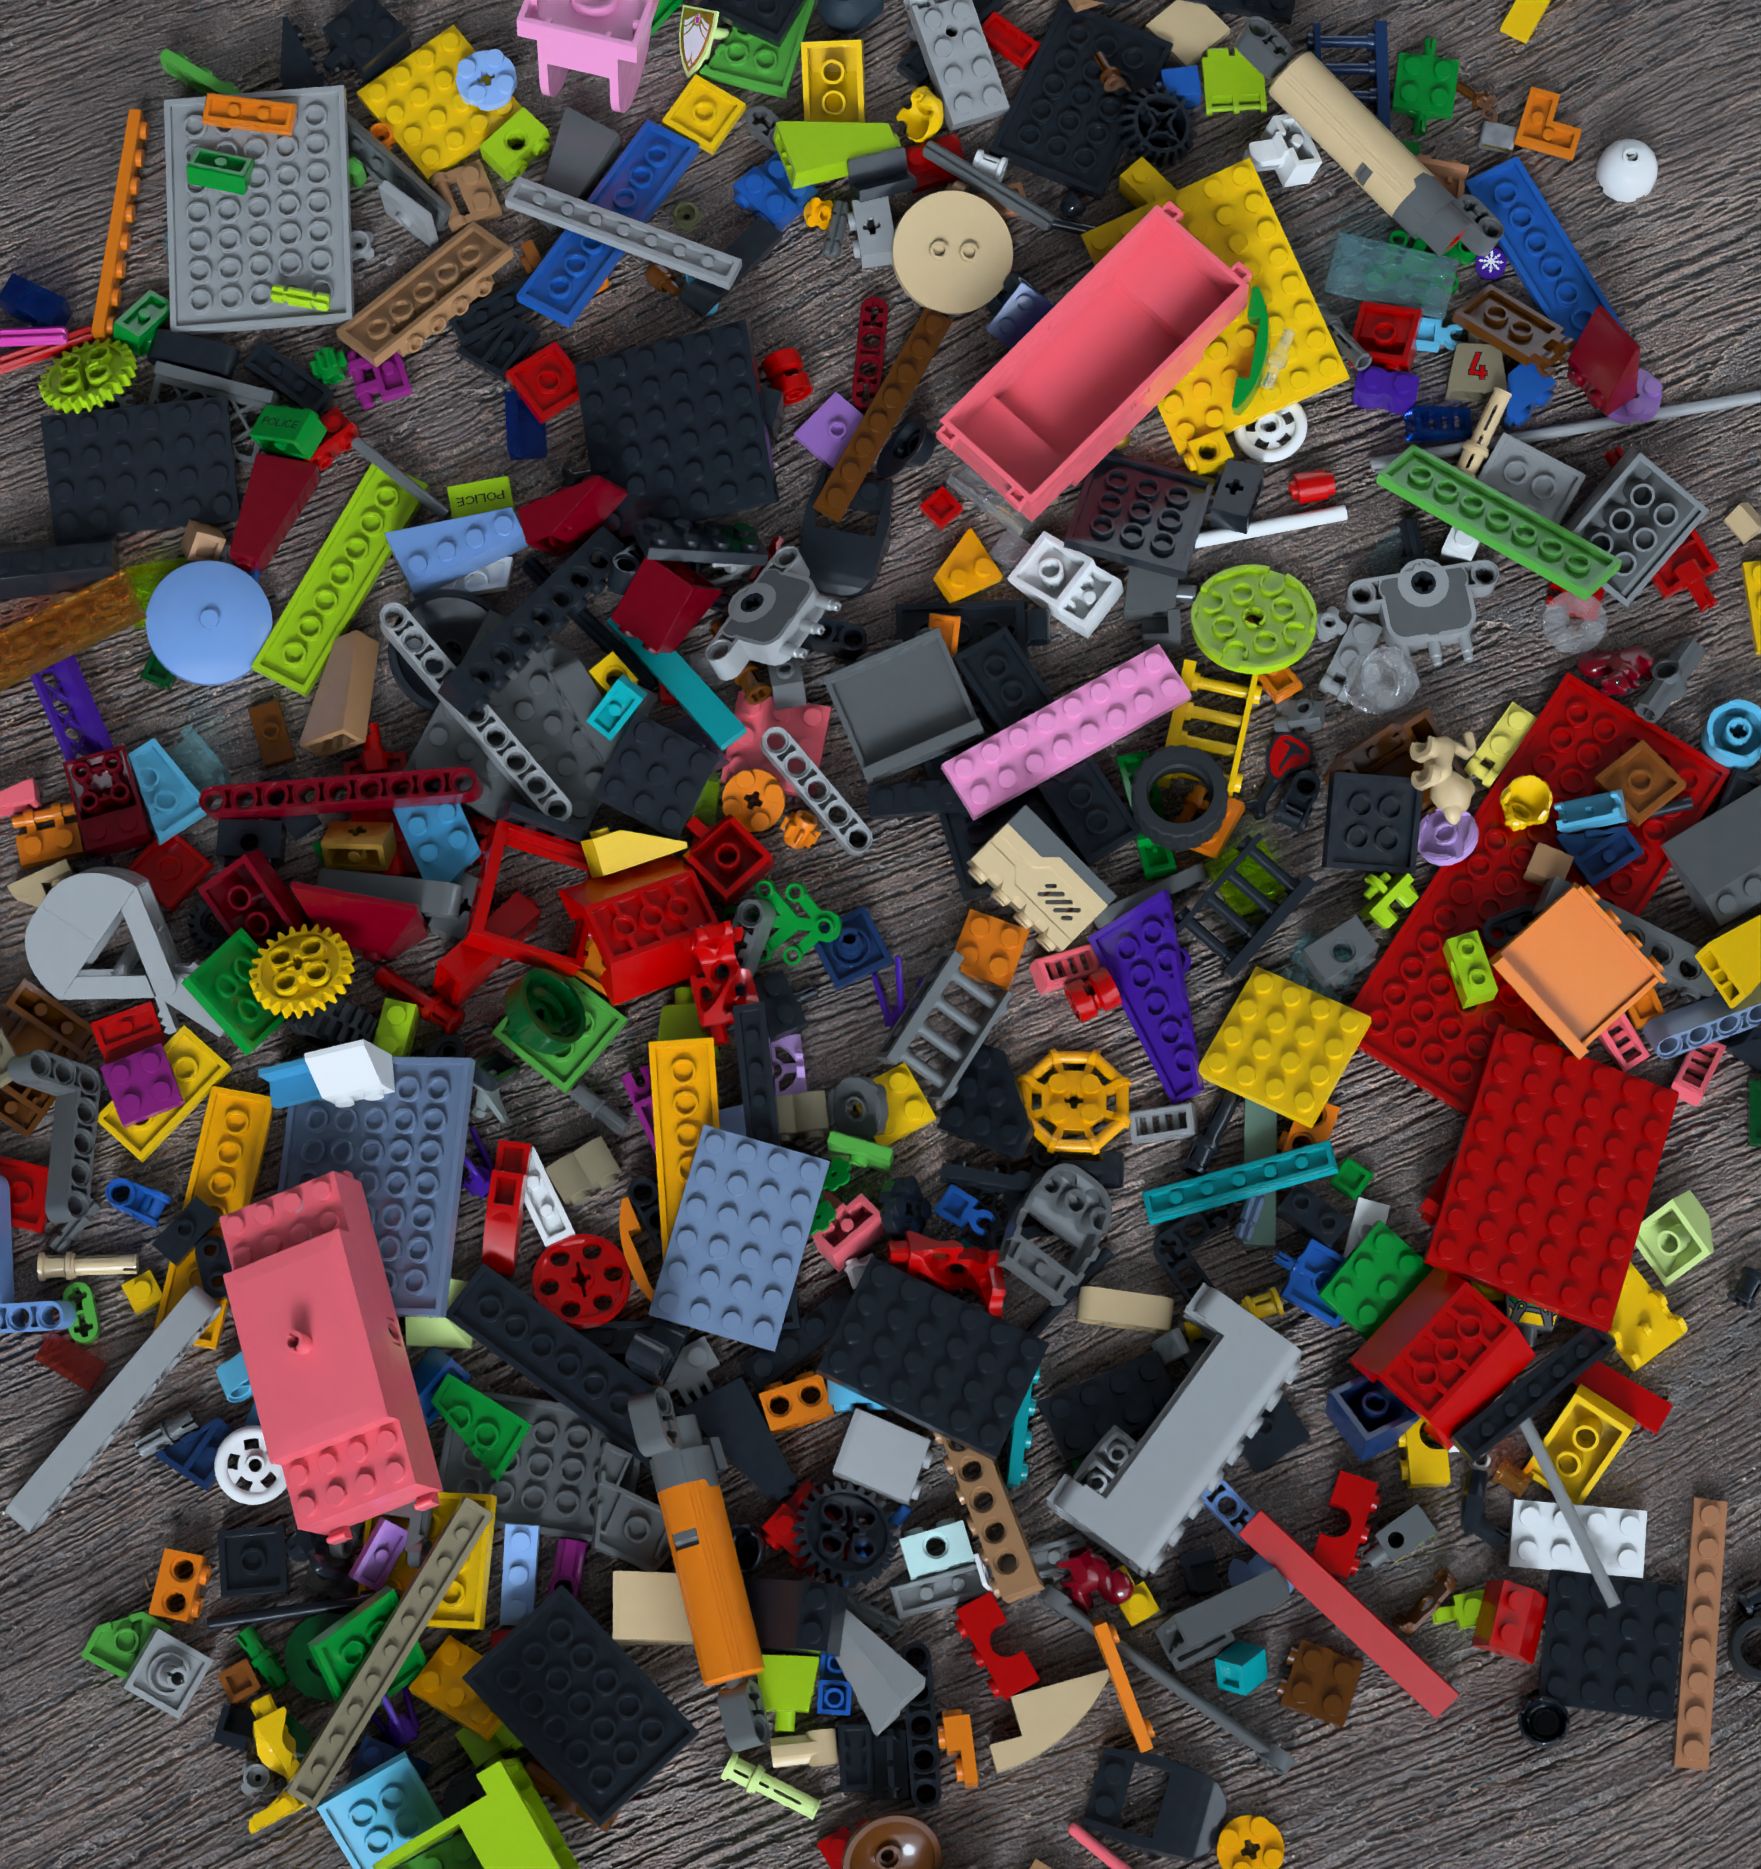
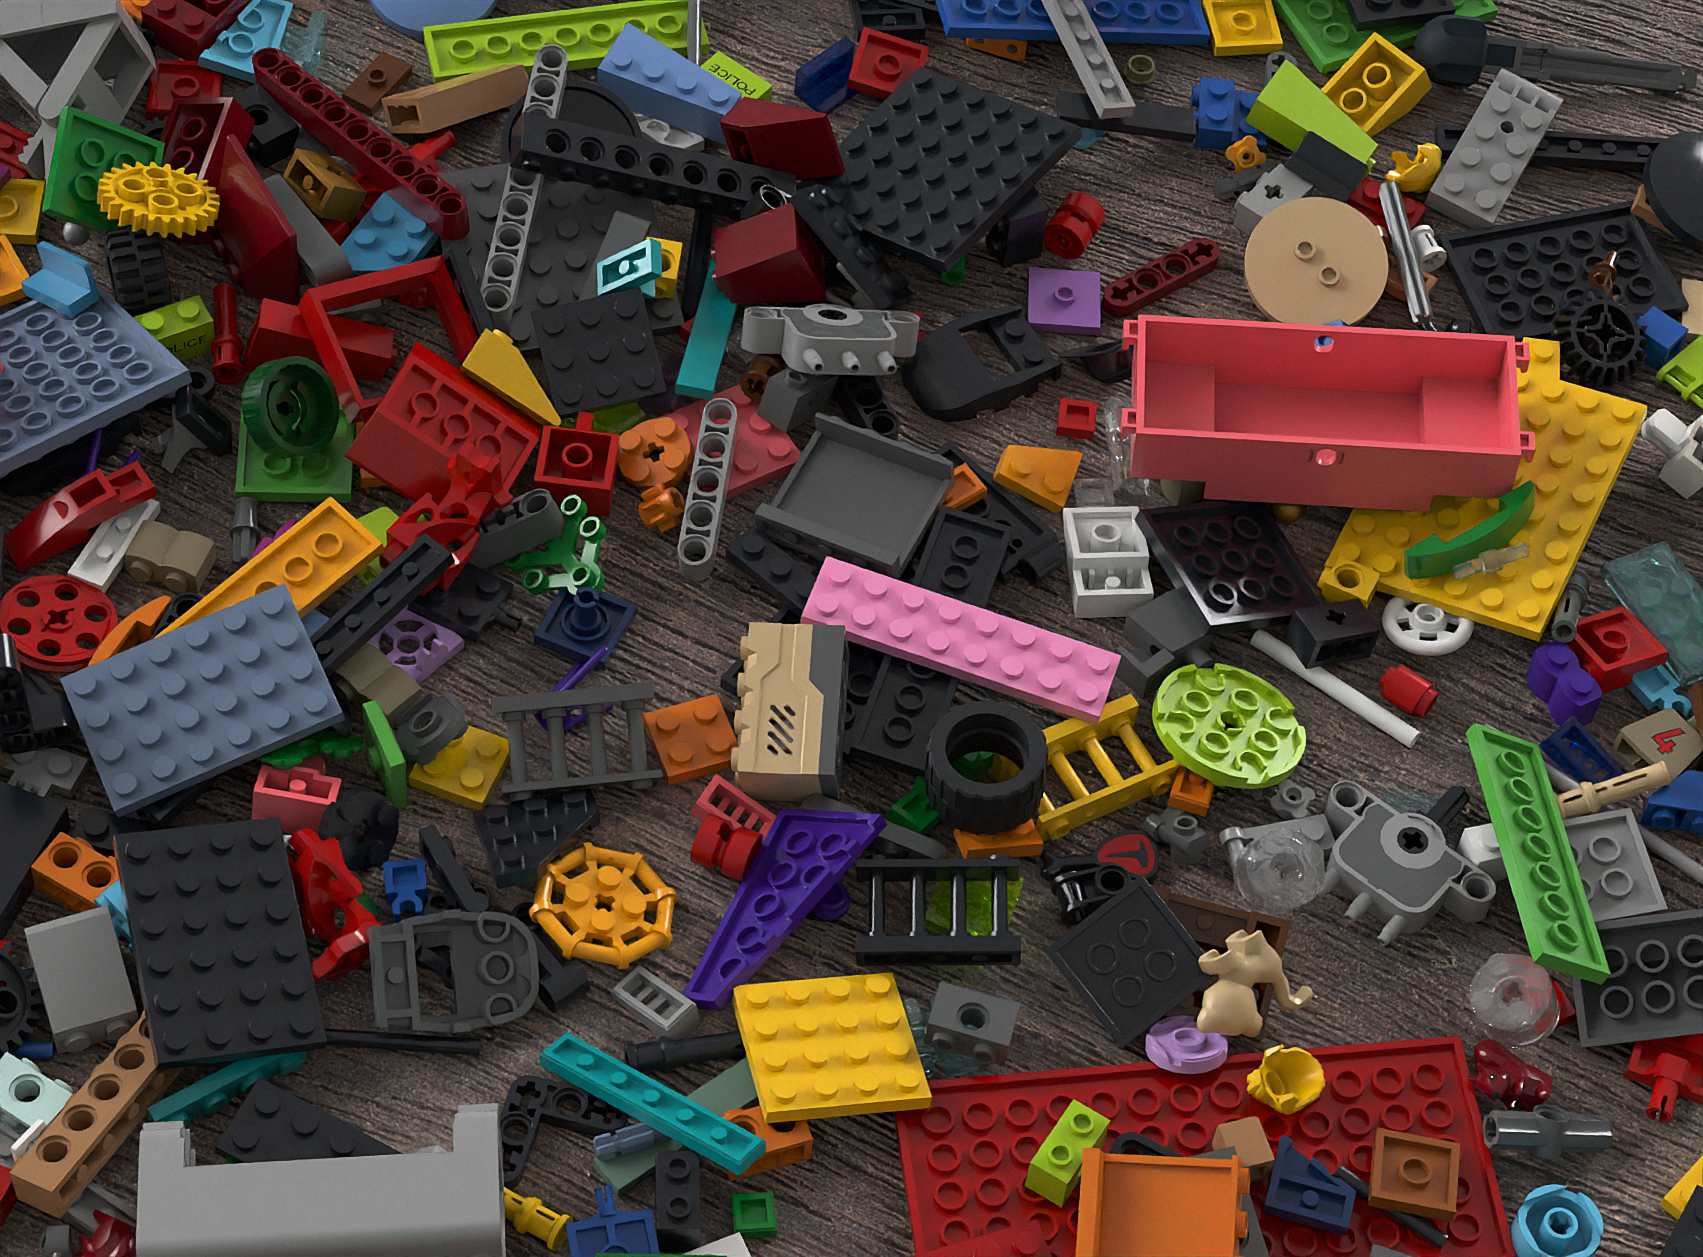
camera: 40 degrees right, 20 degrees down
(351, 1072) = (97, 296): white slope -> none
(662, 279) = (1067, 81): reddish brown cylinder -> none
(882, 414) = (1106, 314): reddish brown plate -> none
(1009, 40) = (1550, 187): red plate -> none
(1125, 1310) = (423, 1093): tan beam -> none
(1397, 889) = (1054, 1037): lime hips -> none
(1501, 744) = (1327, 1029): light yellow plate -> none
(1591, 812) = (1336, 1148): medium azure hinge -> none

